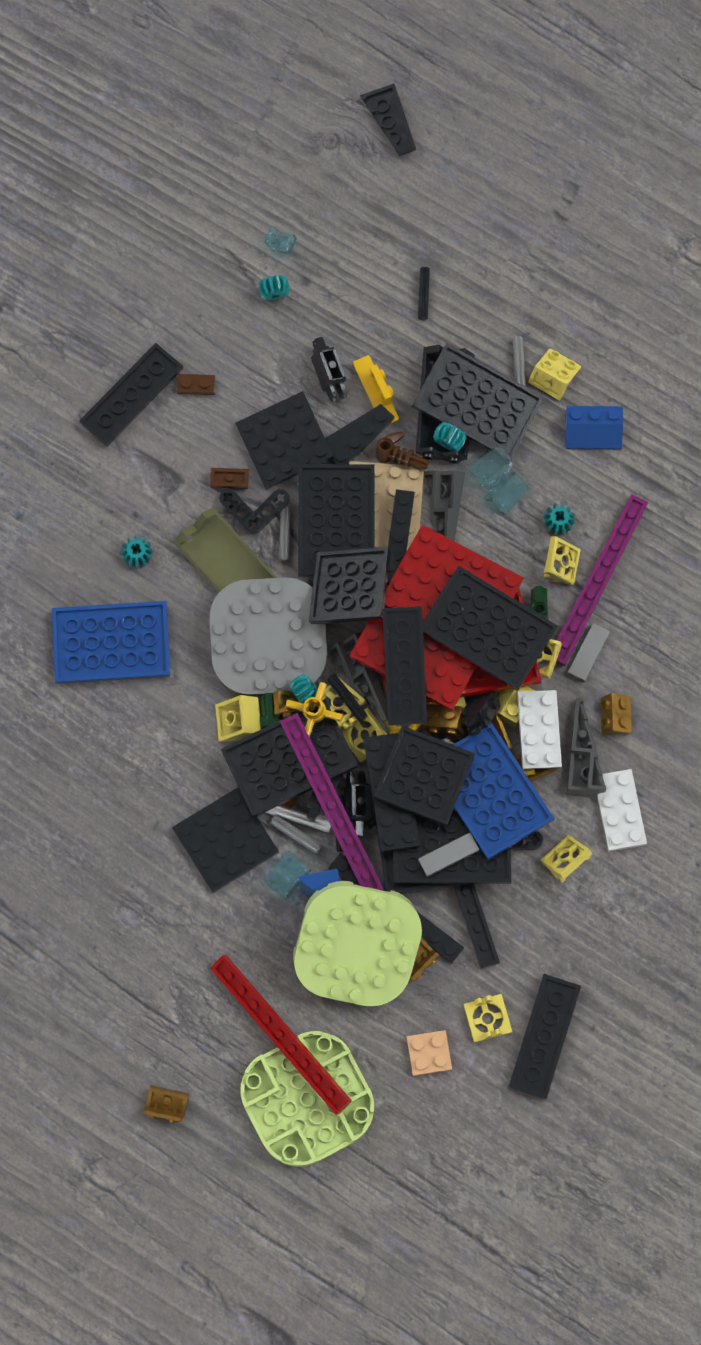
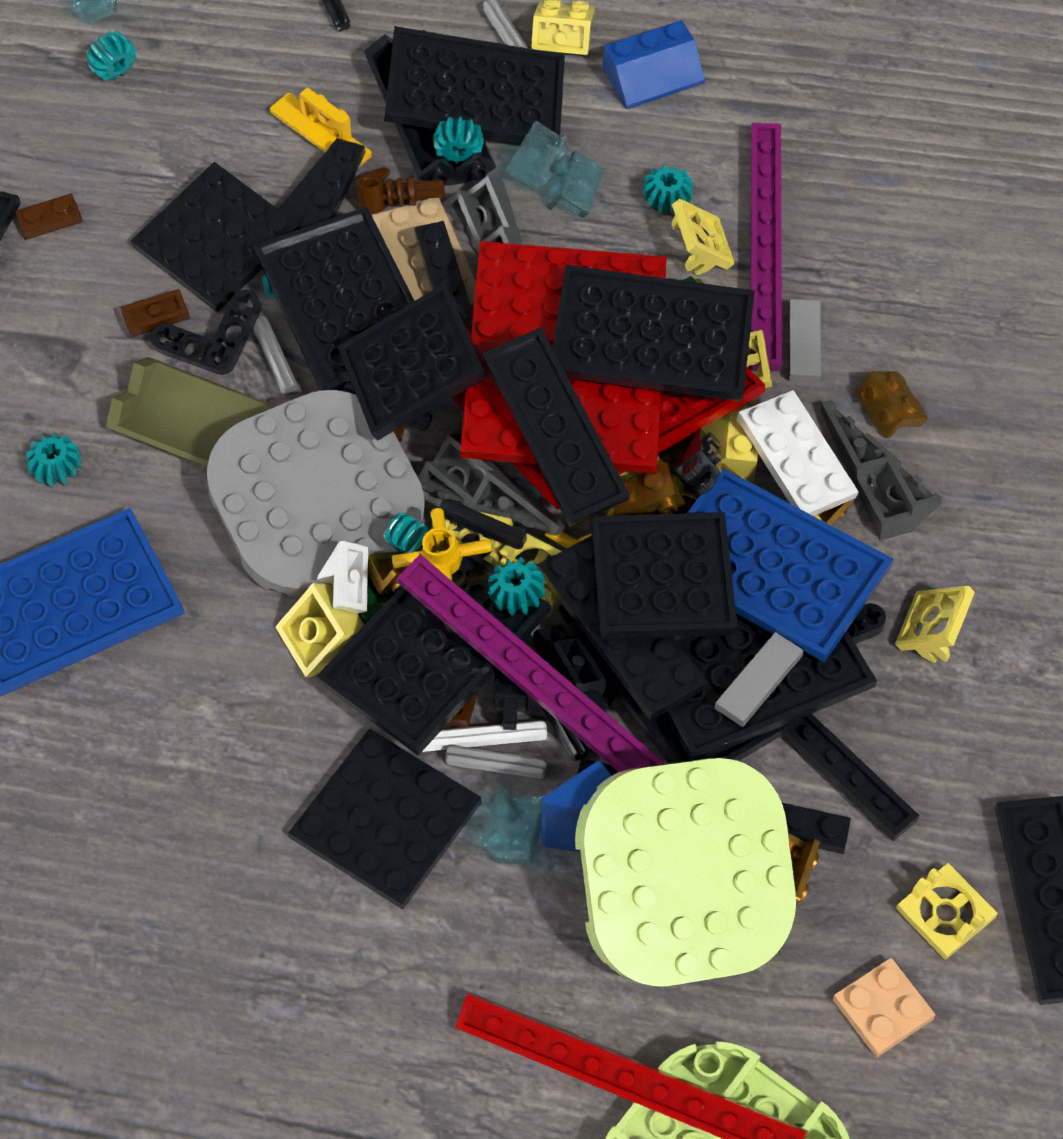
camera: 25 degrees left, 15 degrees down
(263, 696) = (349, 573): none -> white slope
(328, 369) = (240, 124): black hinge -> none
(342, 756) = (516, 586): none -> teal gear
(621, 812) = (977, 531): white plate -> none

